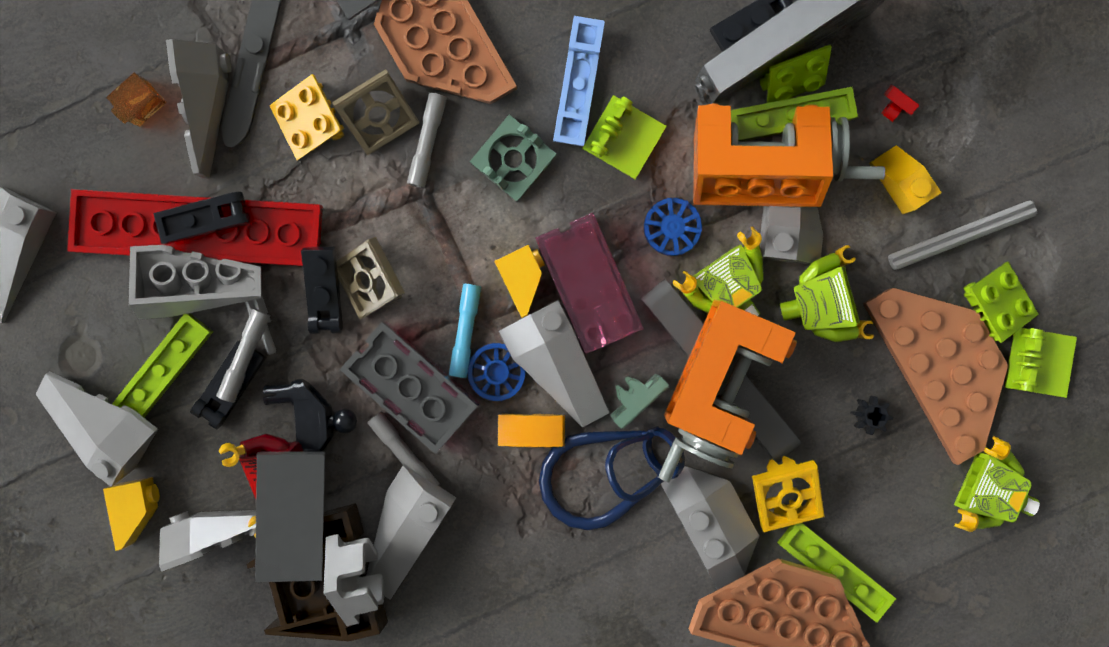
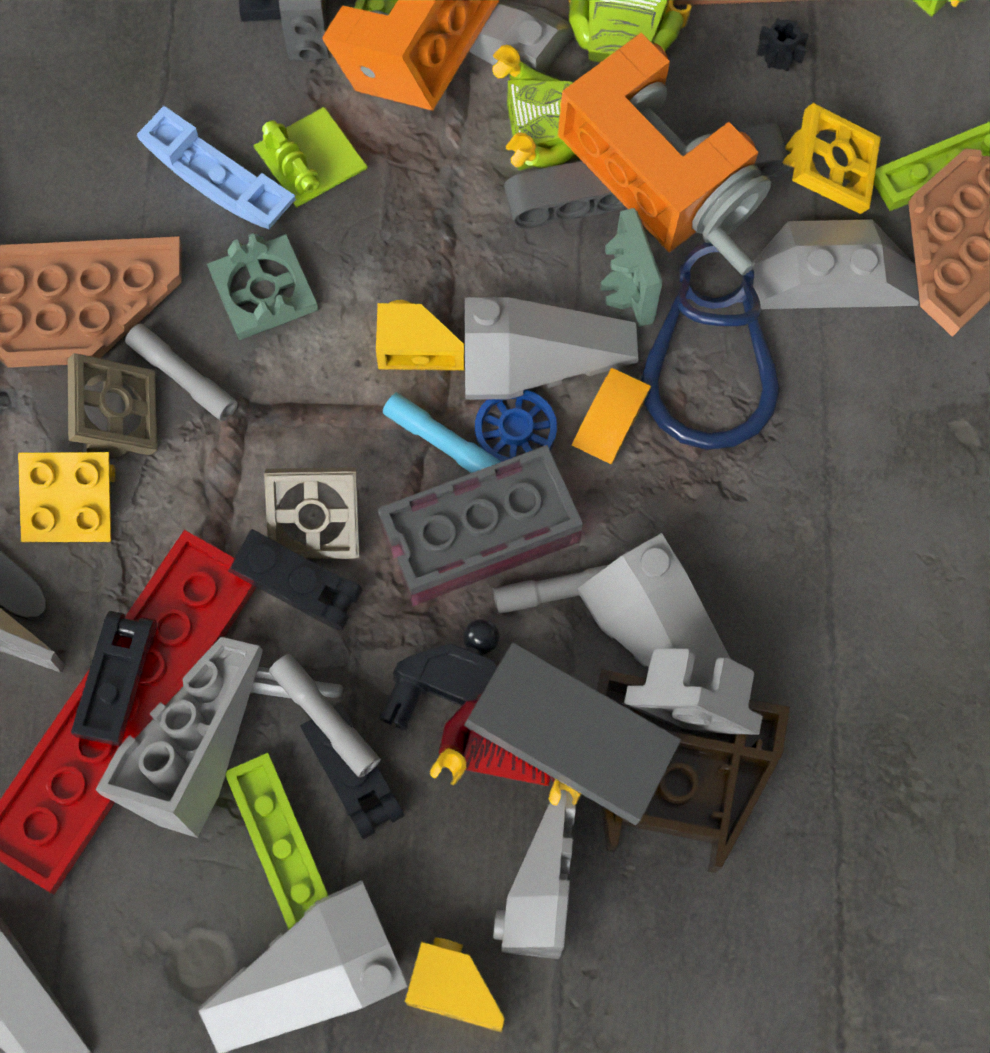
camera: 60 degrees left, 20 degrees down
(589, 283) = (460, 257): clear pink piece -> none
(672, 226) = (446, 153): blue wheel -> none

